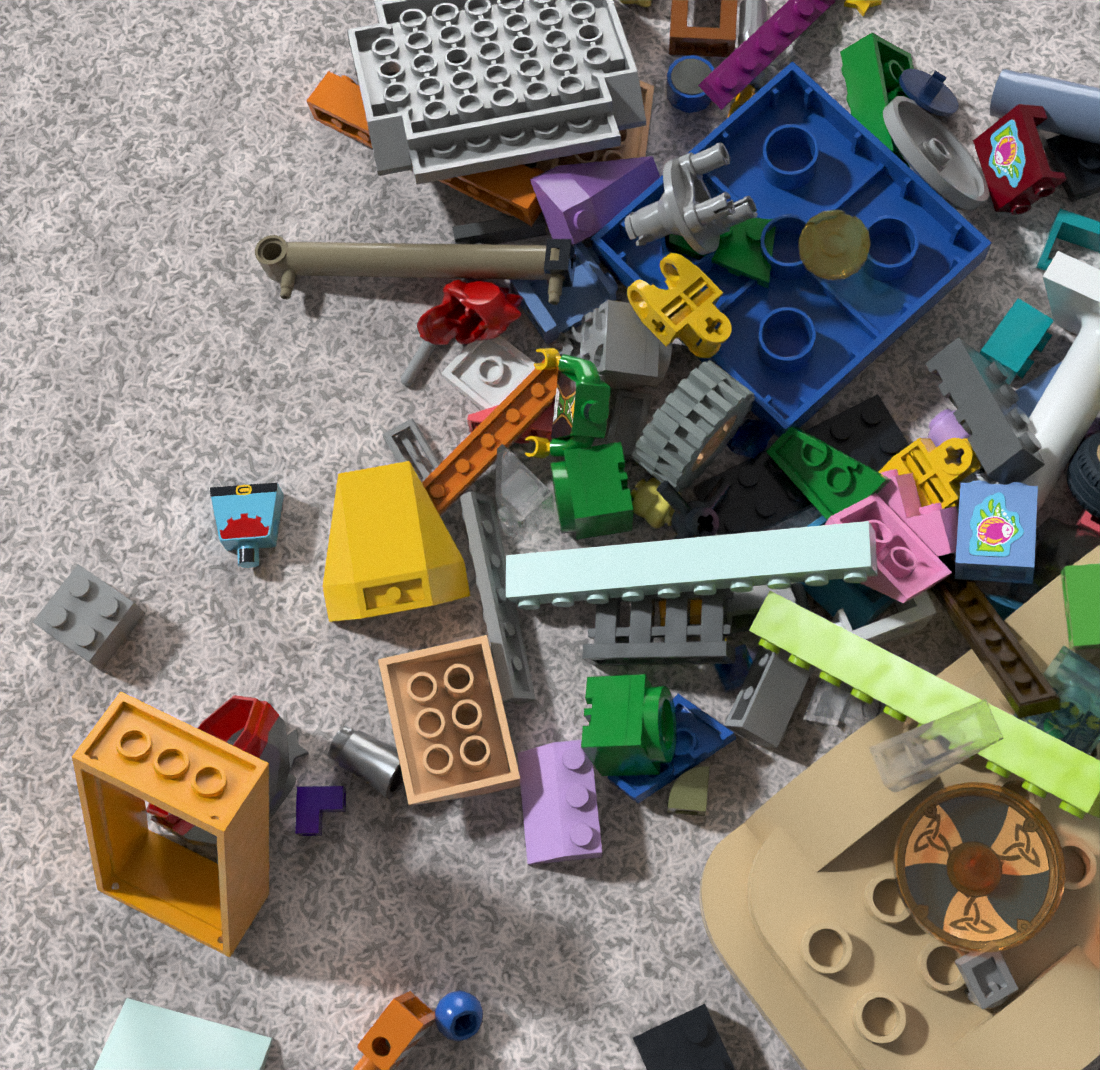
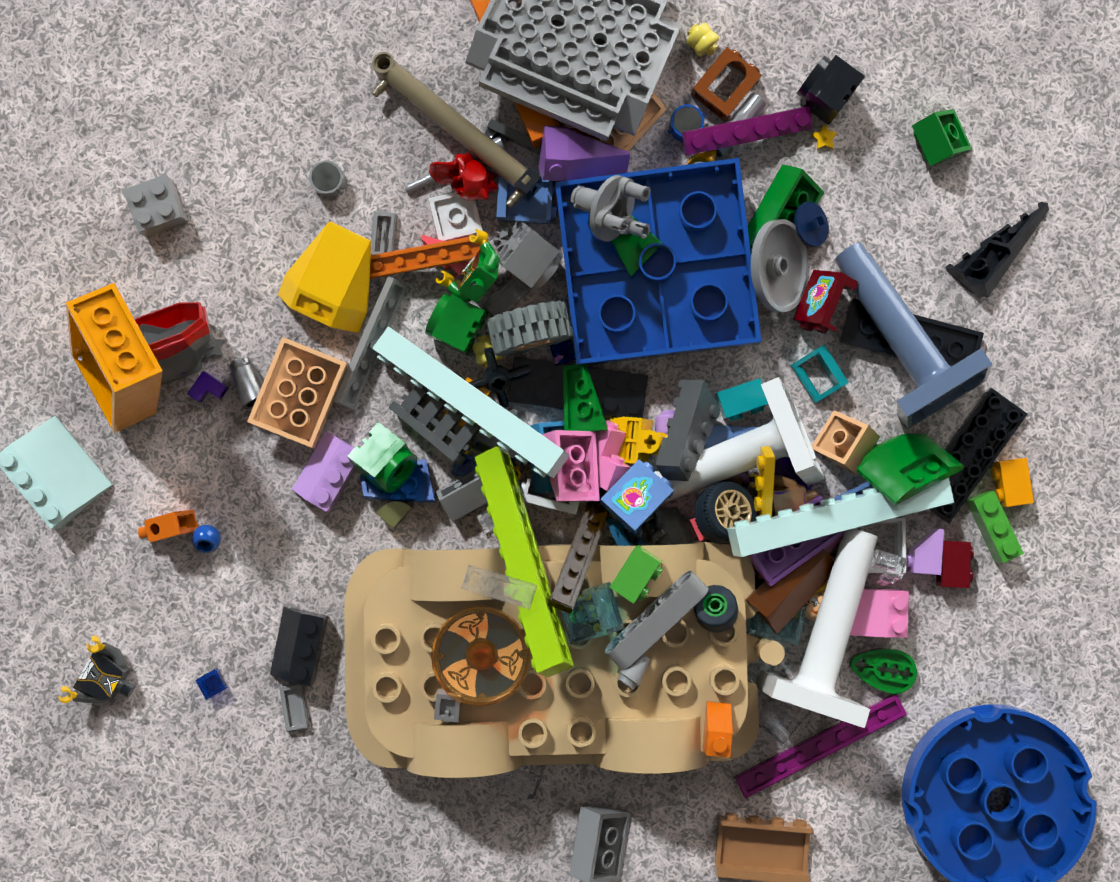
camera: 30 degrees right, 15 degrees up
(247, 518) = (271, 209): medium azure torso -> none
(295, 435) = (327, 179): none -> piece
(520, 497) = (415, 298): clear slope -> none
(682, 308) = (572, 271): yellow piece -> none
(834, 245) = (677, 282): clear yellow tile -> none

